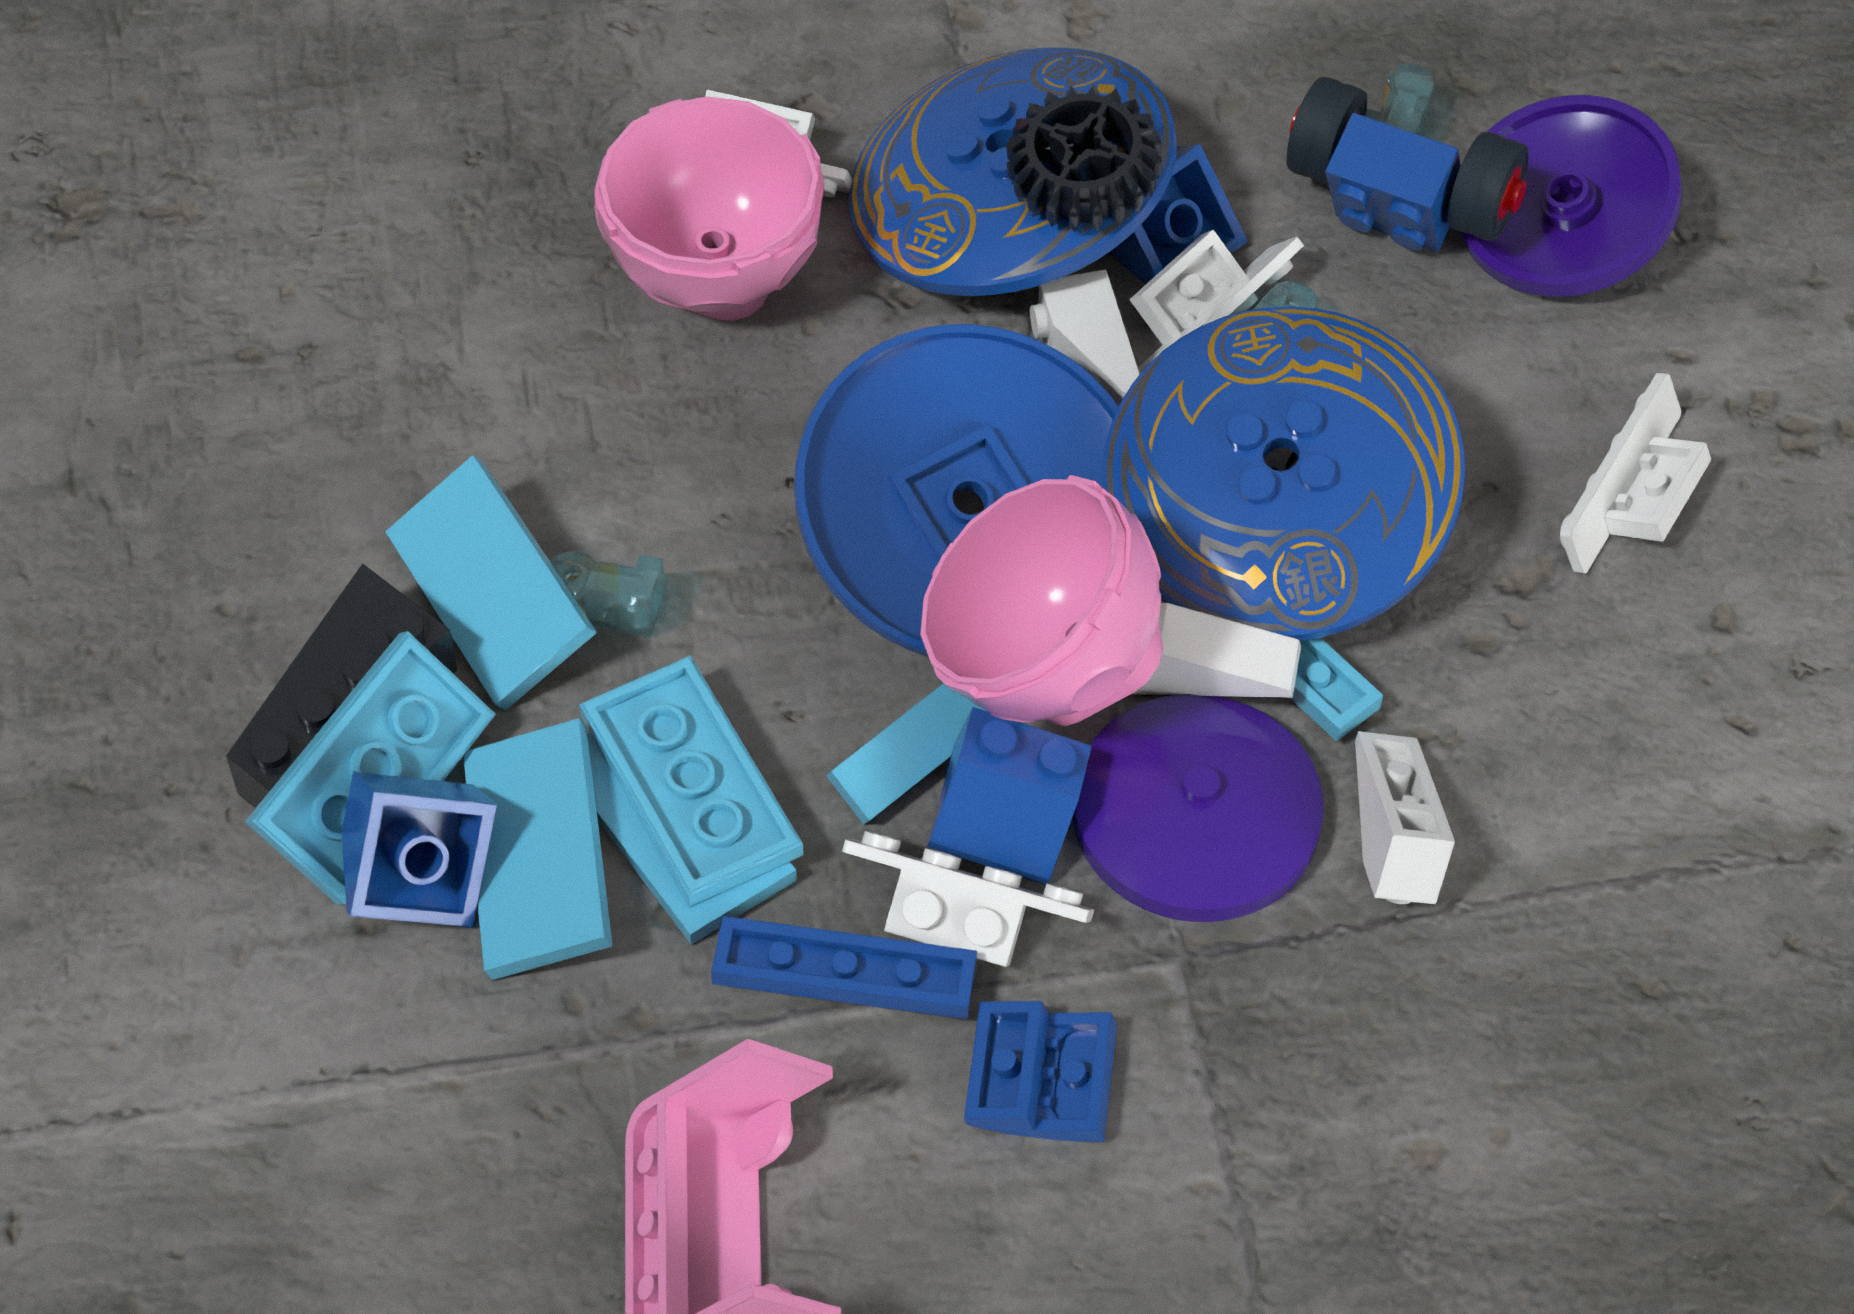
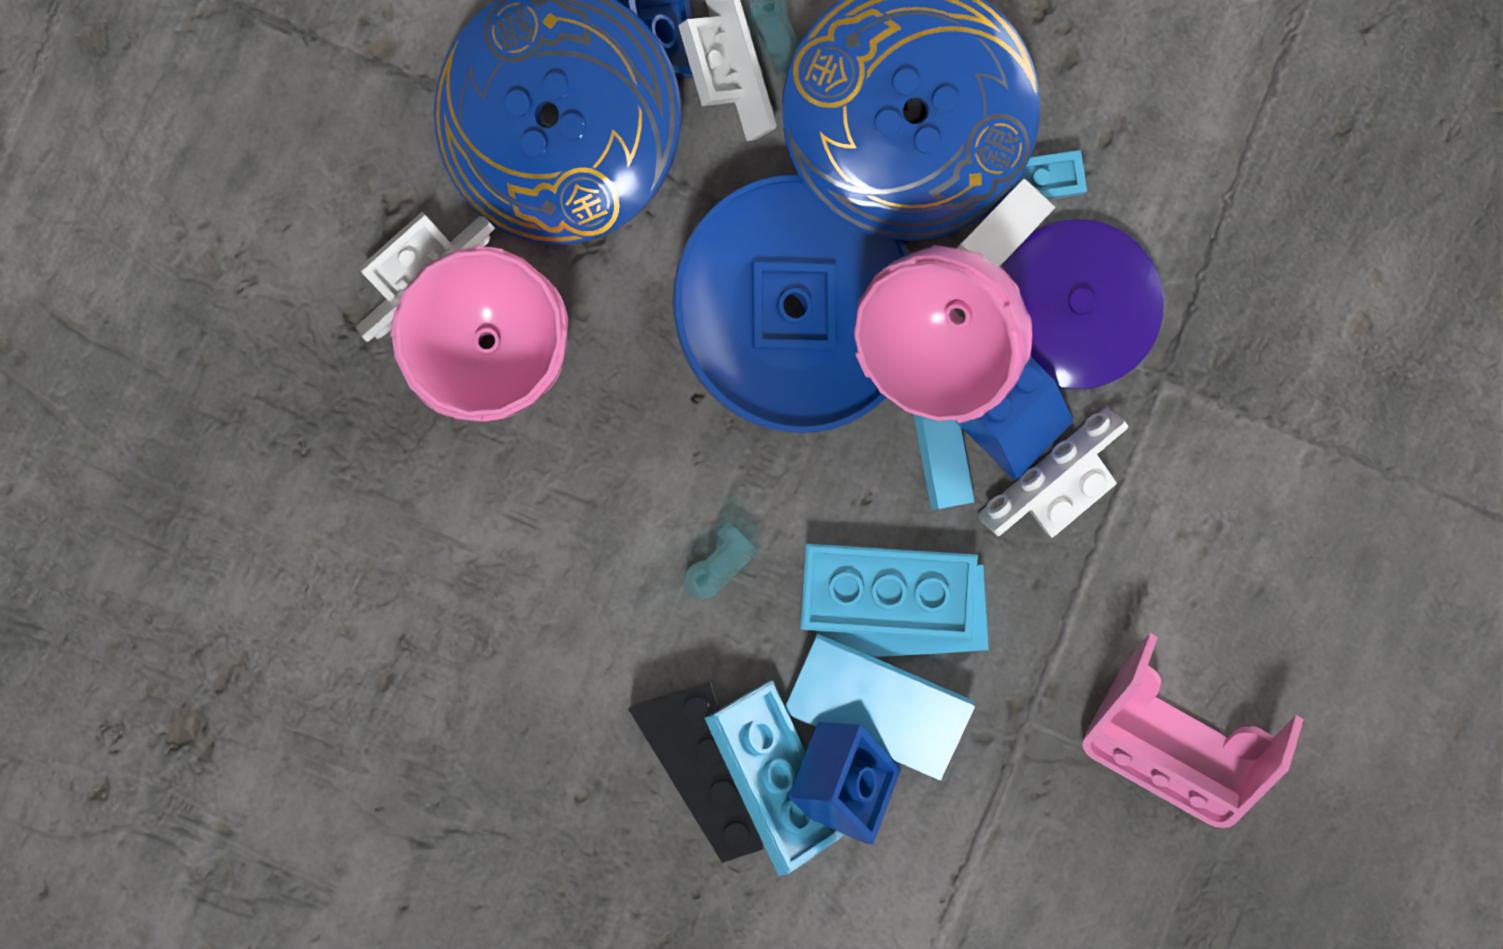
camera: 60 degrees left, 30 degrees up
(490, 582) = (673, 632): medium azure tile -> none
(844, 967) = (1063, 575): blue plate -> none
(1041, 1071) = (1190, 504): blue slope -> none
(1085, 324) = (718, 150): white slope -> none
(1094, 175) = (638, 72): black gear -> none
(1400, 820) = (1163, 196): white slope -> none

